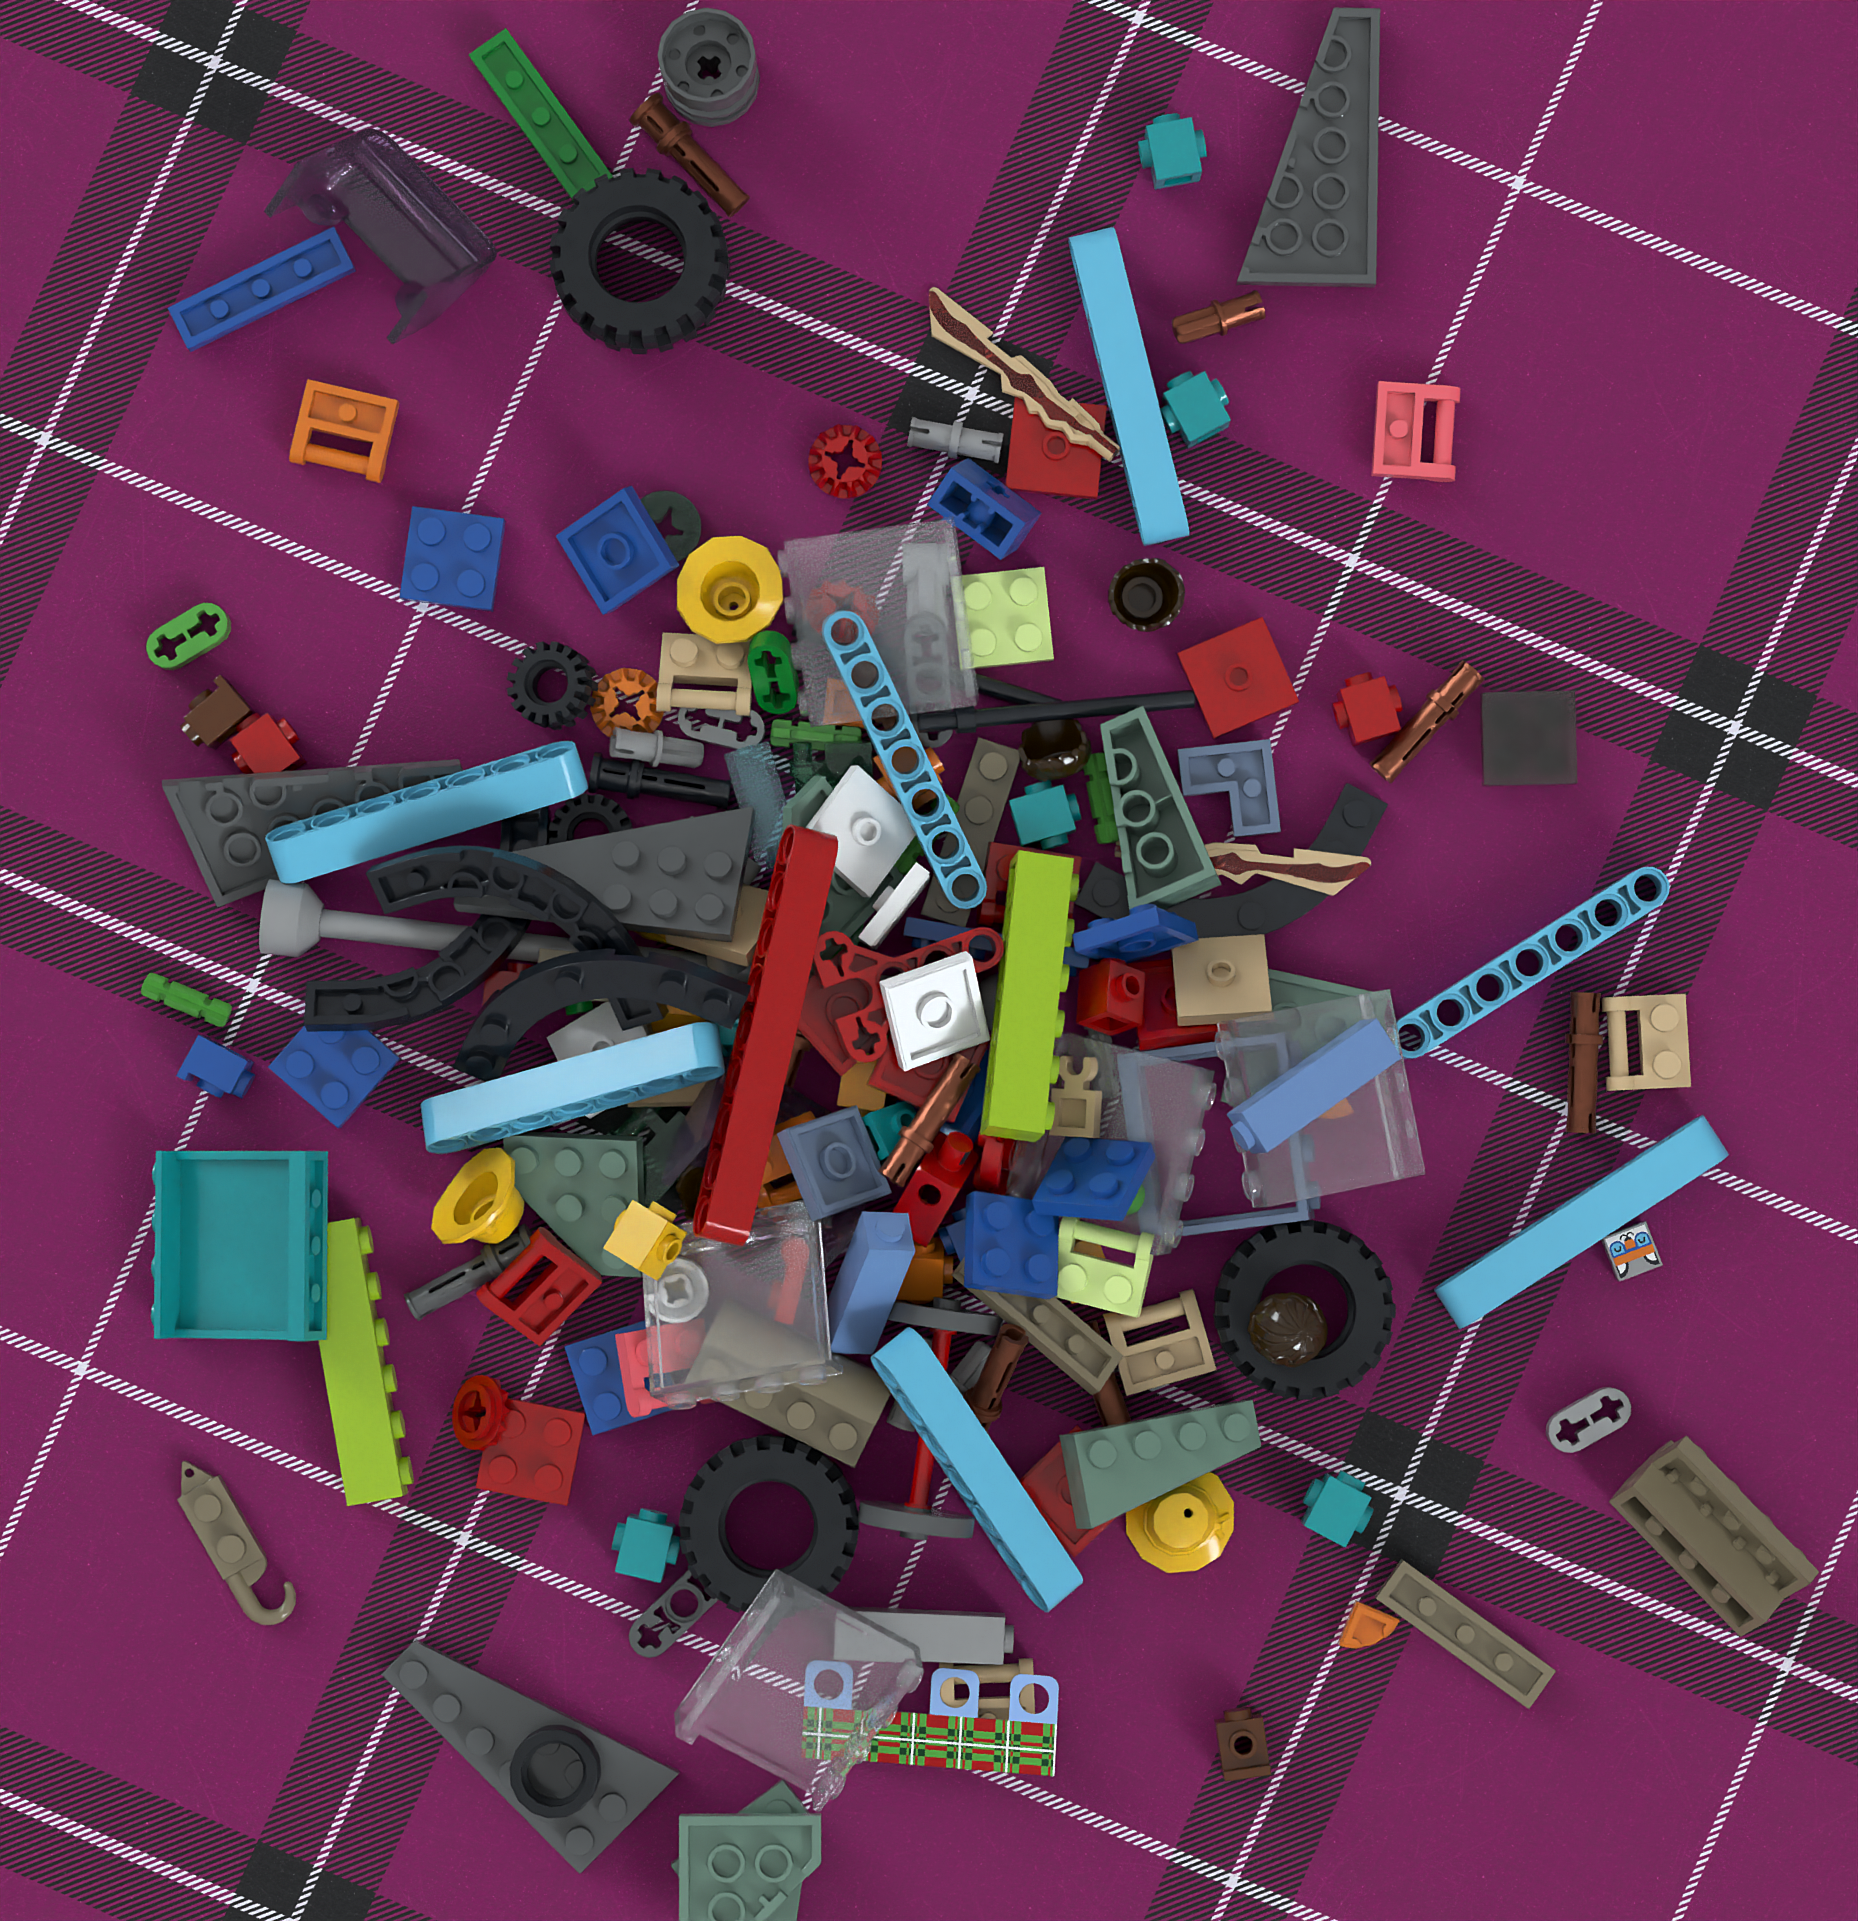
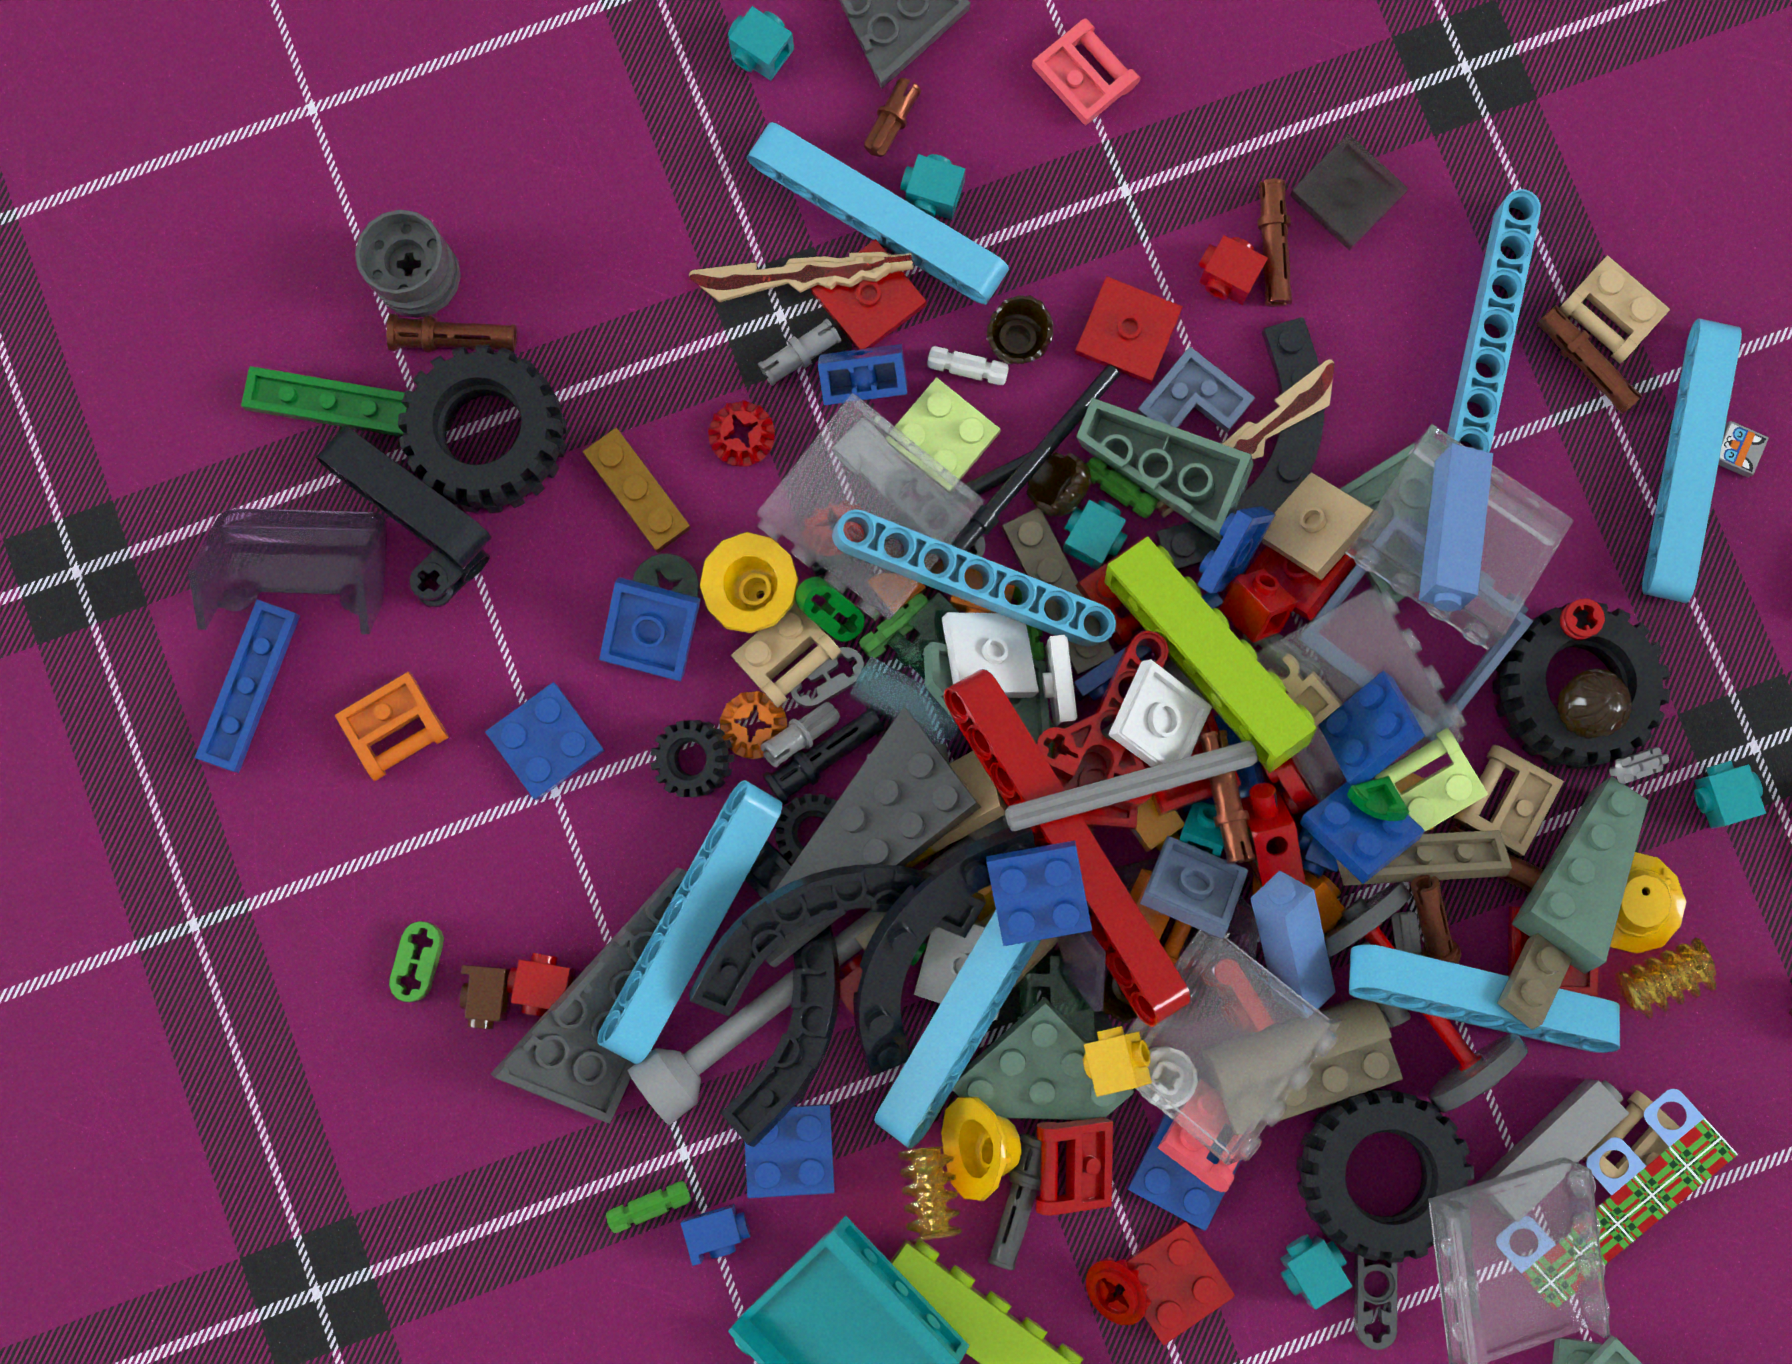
camera: 50 degrees left, 5 degrees down
(408, 1198) = (929, 1193): none -> clear yellow piece
(516, 344) = (446, 574): none -> black piece
(524, 256) = (404, 497): none -> black beam
(704, 1049) = (1039, 893): none -> blue plate
(717, 426) = (637, 490): none -> pearl gold plate
(858, 1038) = (1130, 786): none -> light grey axle
(1027, 1492) = (1534, 981): none -> dark tan plate
(1043, 1236) = (1379, 799): none -> green tile
(1079, 581) = (967, 365): none -> white axle
(1141, 1599) = (1668, 978): none -> clear yellow piece
(1286, 1414) = (1639, 765): none -> light grey axle
(1358, 1262) = (1594, 616): none -> red bush

